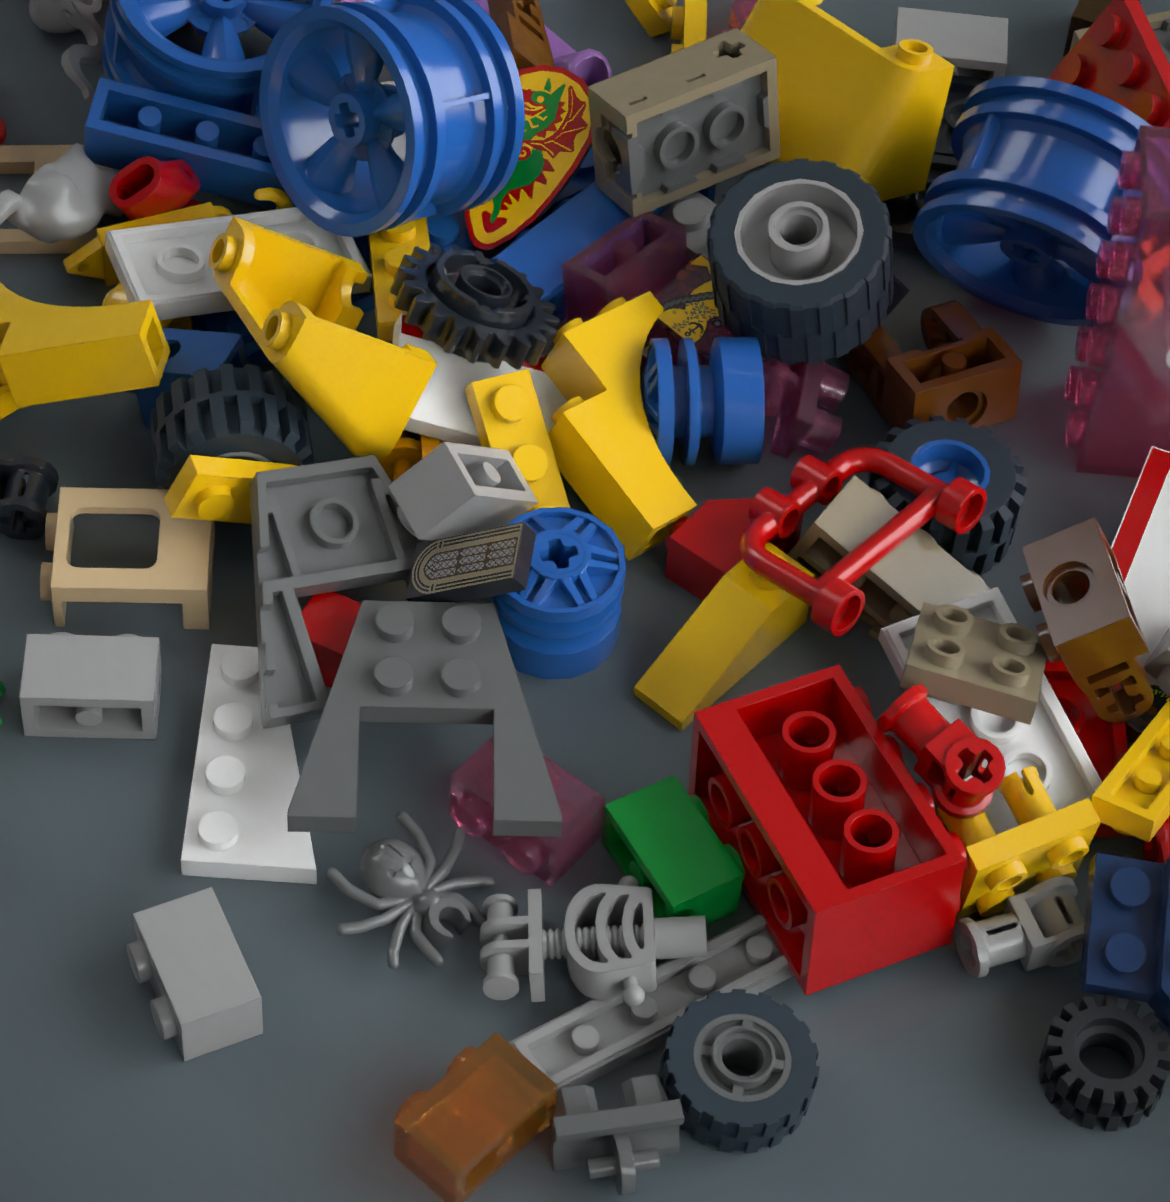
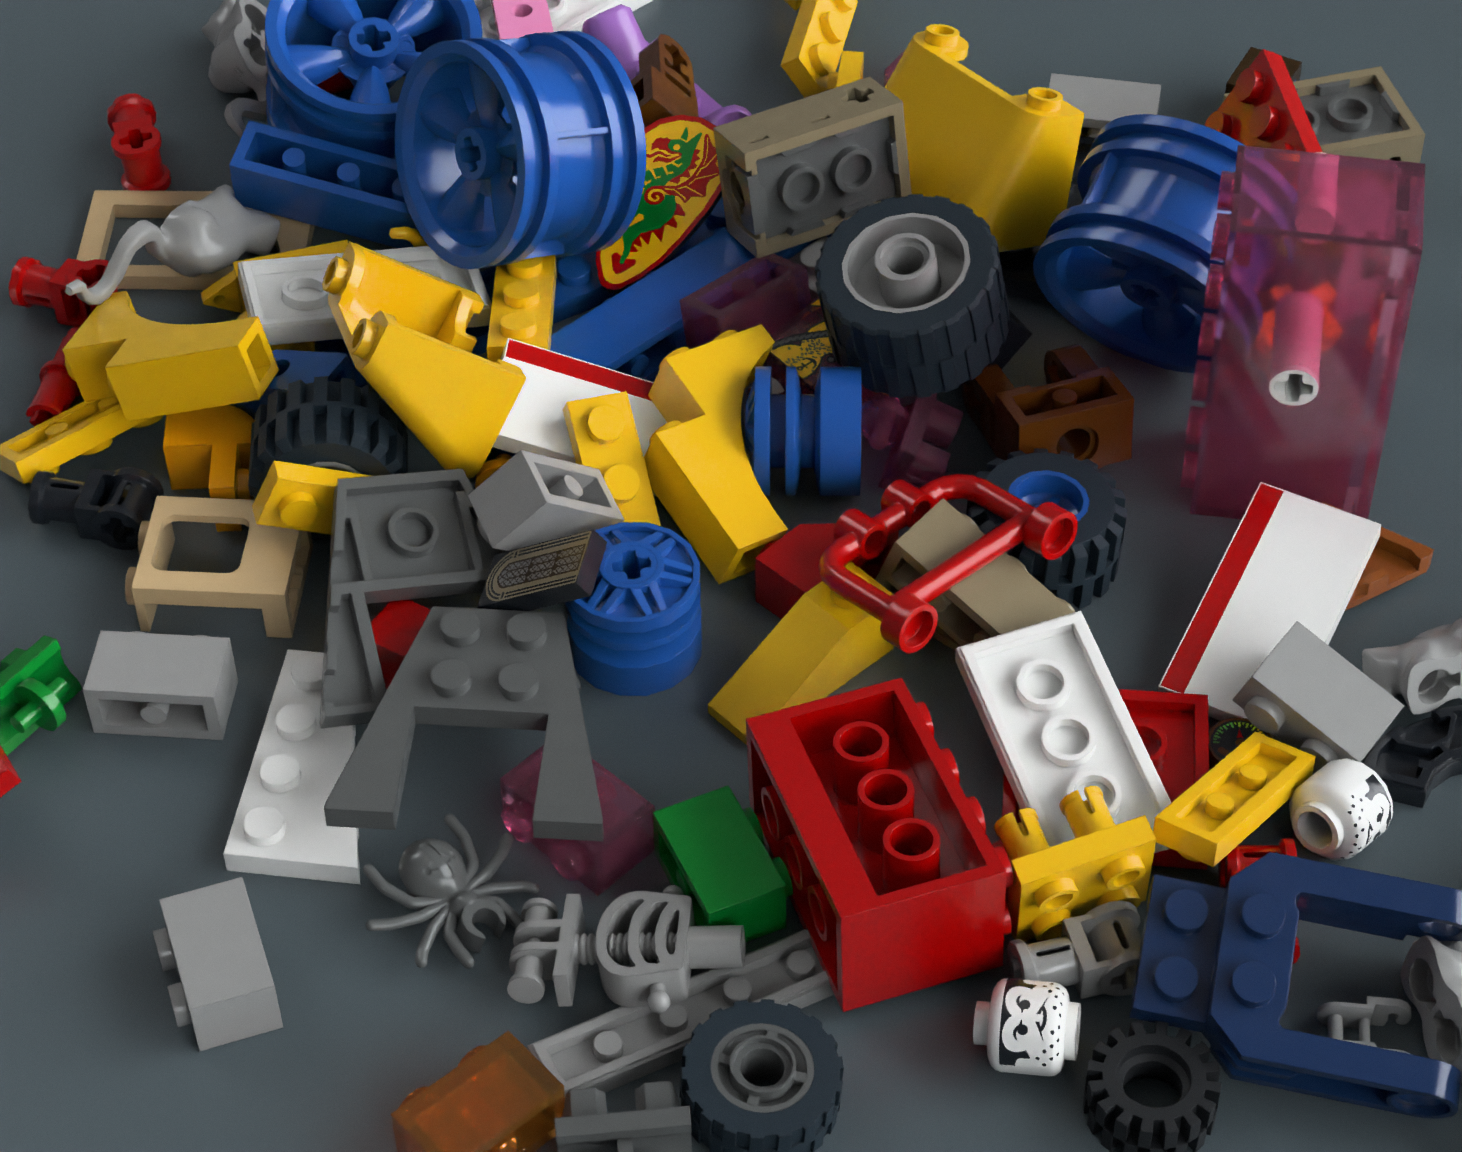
camera: 10 degrees right, 5 degrees down
(107, 435) = (210, 452): none -> light orange brick
(154, 187) = (292, 223): red piece -> none
(474, 306) = (580, 332): black gear -> none
(945, 754) = (998, 765): red connector -> none
(976, 662) = (1043, 680): dark tan plate -> none
(985, 1004) = (1028, 1027): none -> white head
(1089, 618) = (1168, 642): reddish brown brick -> none

